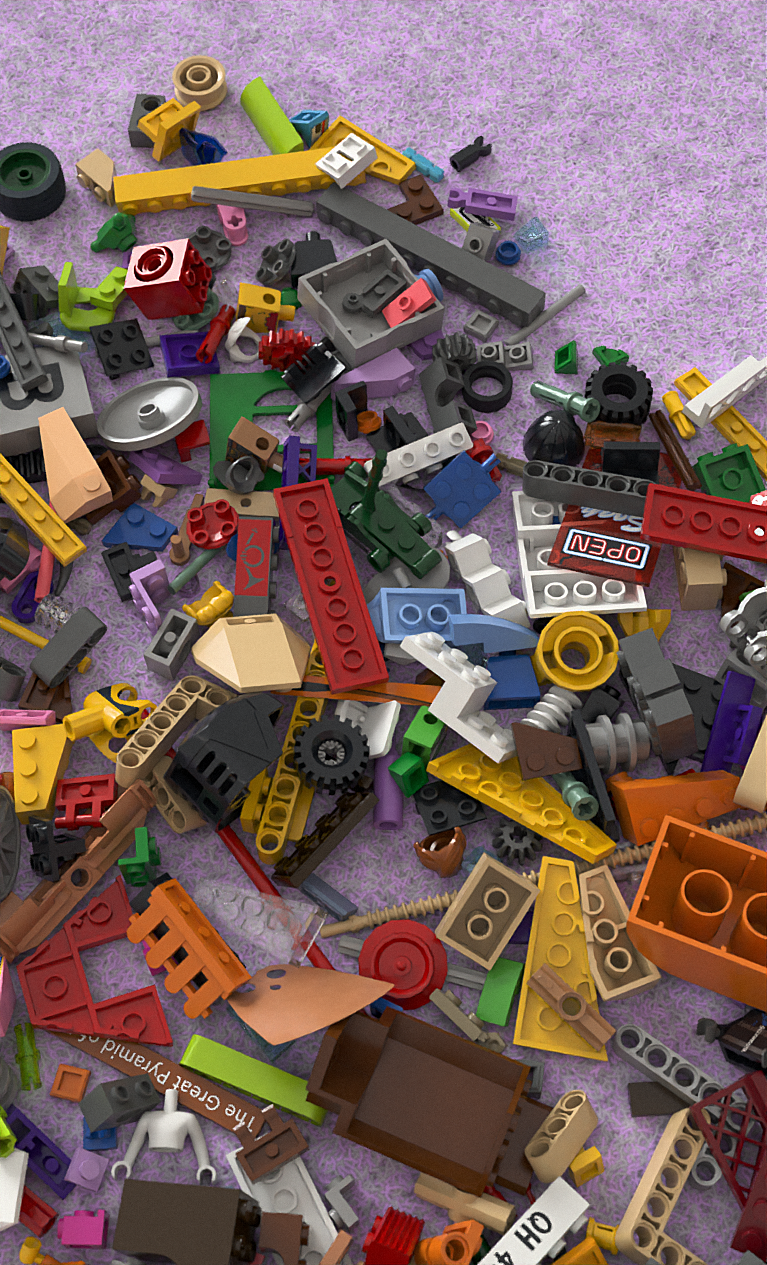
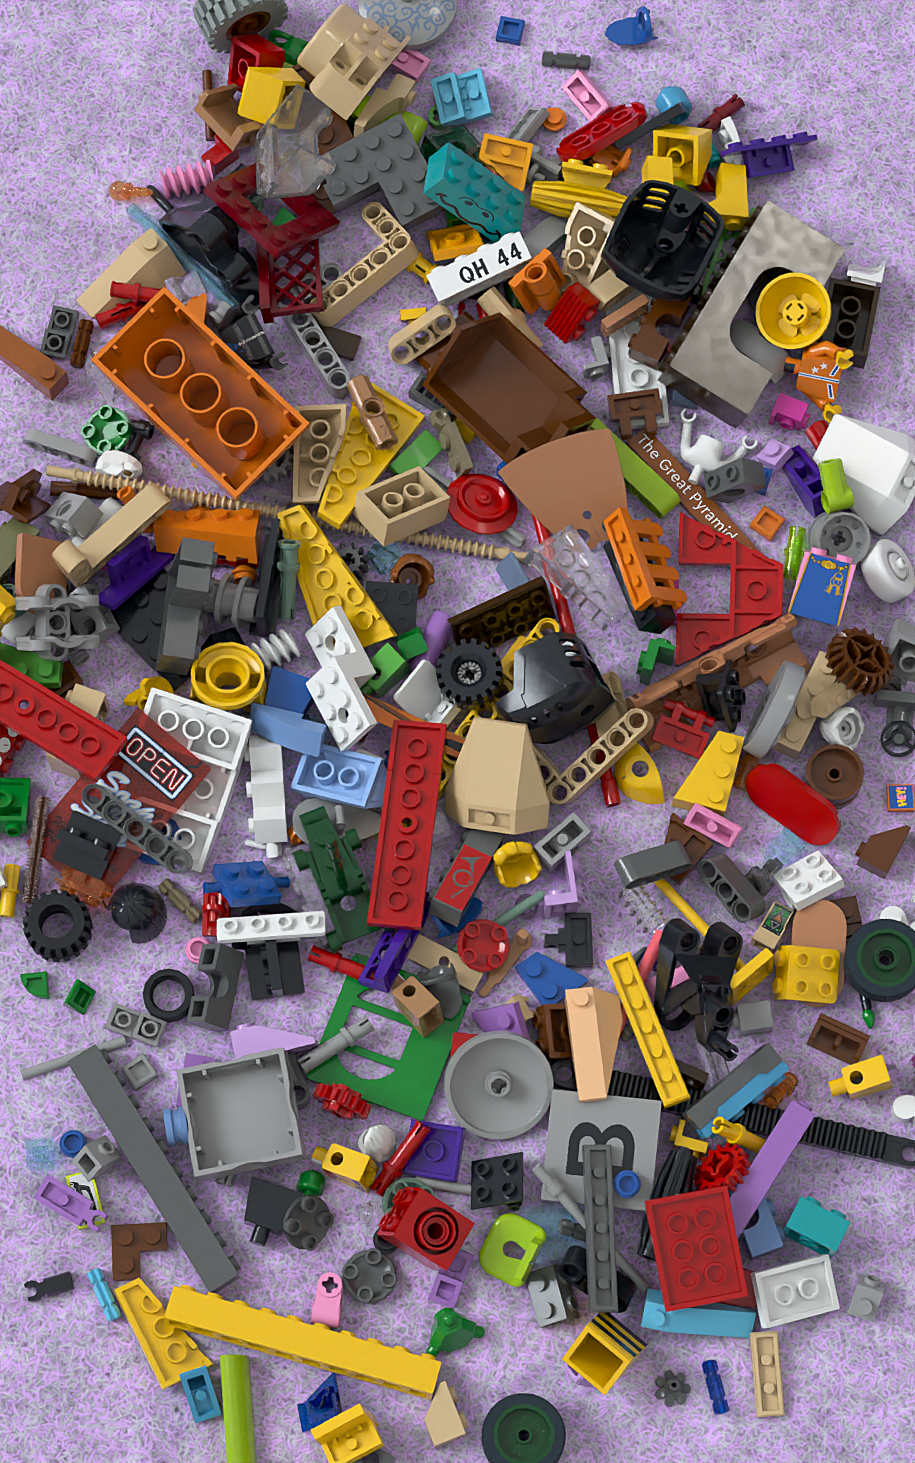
camera: 160 degrees left, 10 degrees up
(108, 712) = (639, 793): yellow connector -> none
(110, 291) = (479, 1258): lime plate -> none
(252, 201) = (302, 1300): light grey axle -> none
(316, 375) = (328, 1056): black hinge -> none
(342, 169) = (175, 1304): white piece -> none
(349, 404) = (310, 1016): black panel -> none
(368, 421) = (293, 1010): orange plate -> none
(375, 295) = (231, 1123): dark grey hinge -> none
(414, 299) = (207, 1089): coral plate -> none
(456, 349) = (184, 1036): dark grey gear -> none
(544, 752) = (296, 606): reddish brown wing -> none
(571, 402) = (104, 927): sand green pin -> none

